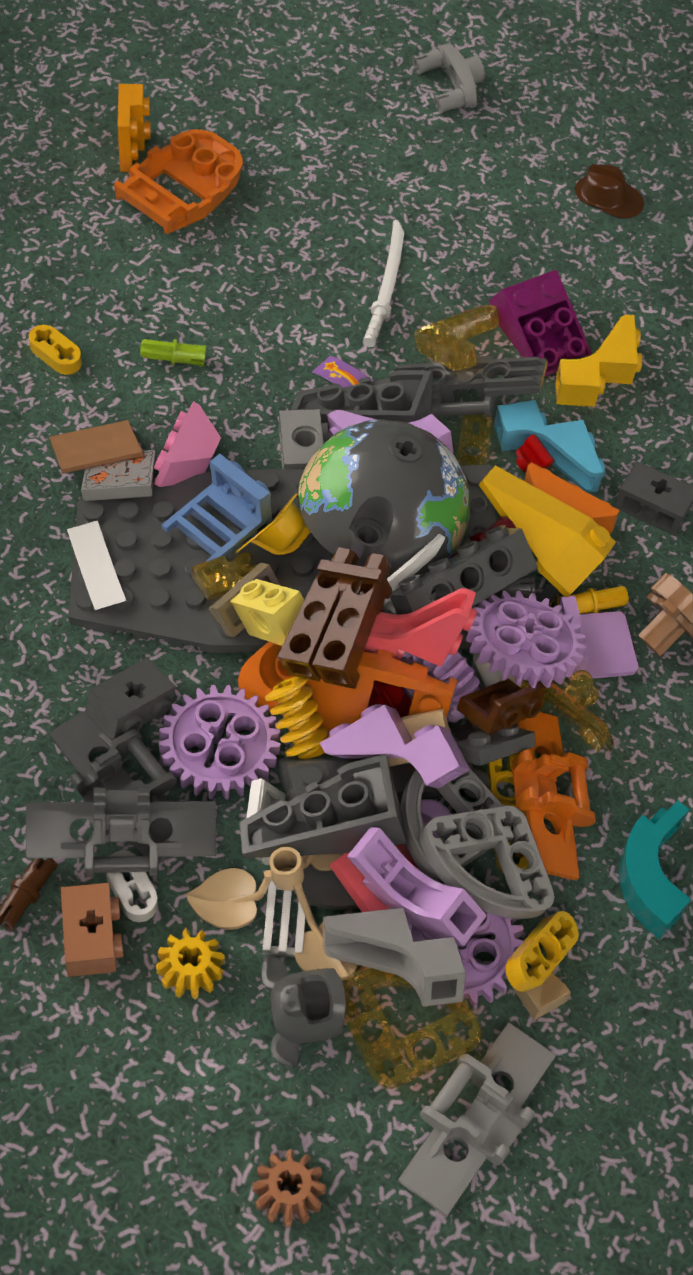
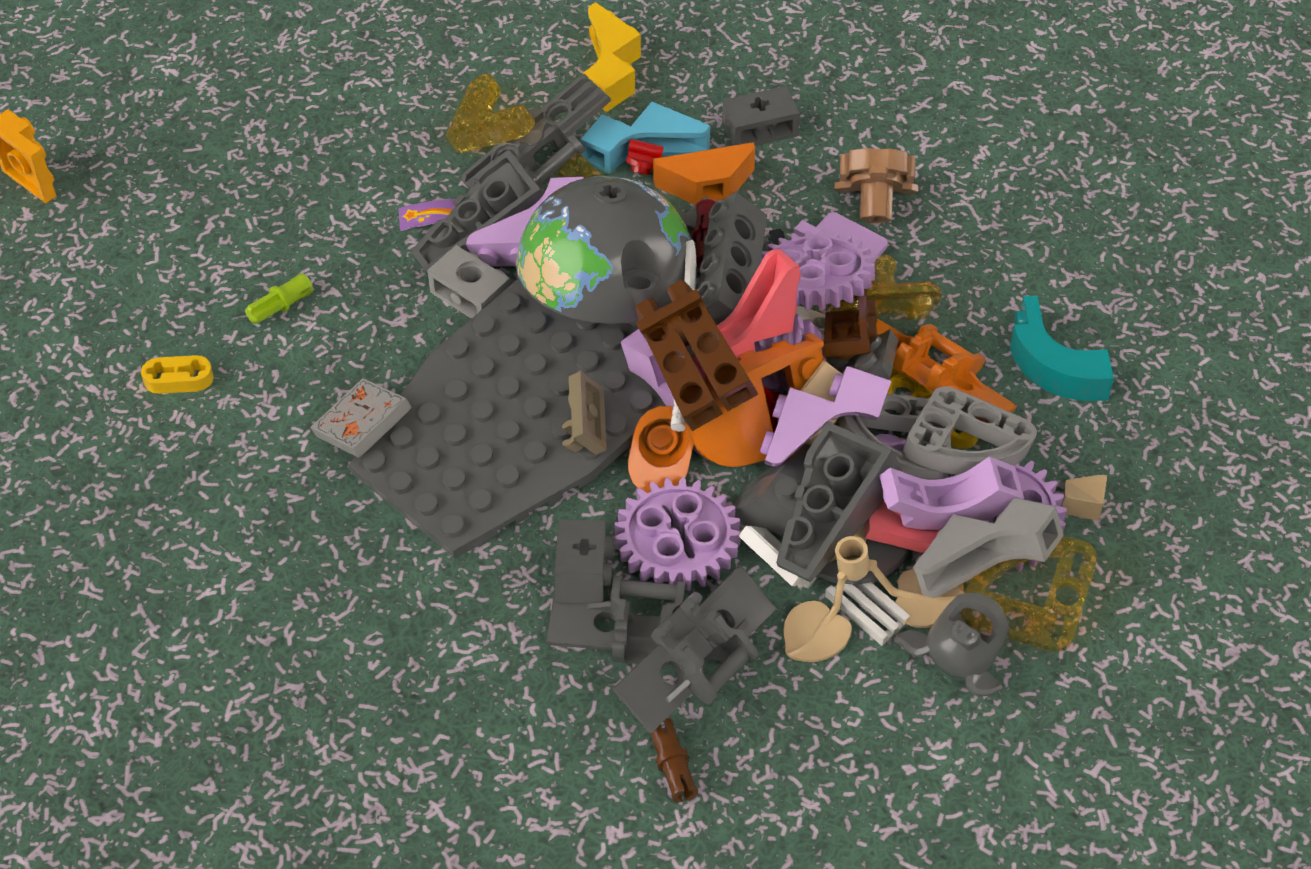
camera: 40 degrees left, 5 degrees down
(86, 951) = (754, 737): nougat brick -> none
(95, 446) = (309, 416): medium nougat piece -> none
(96, 565) = (431, 494): white sticker -> none
(123, 889) = (742, 685): white beam -> none
(188, 448) = (389, 351): bright pink slope -> none
(188, 976) = (836, 697): yellow gear -> none
(196, 161) = (114, 145): orange slope -> none
(219, 575) = (544, 416): clear yellow plate -> none
(234, 496) = (486, 351): medium blue plate -> none
(267, 609) = (627, 400): light yellow brick -> none
(283, 1202) = (1101, 778): nougat gear -> none
(284, 532) = (549, 344): yellow piece -> none
(299, 717) = (723, 462): yellow piece -> none
(381, 308) = (396, 142): white sword -> none
(487, 1125) = (1130, 569): light grey piece -> none
(530, 952) = (1061, 465): yellow beam -> none
(541, 320) = (529, 59): magenta slope -> none
(560, 537) = (758, 182): yellow wedge -> none
(593, 600) = (809, 213): yellow axle -> none

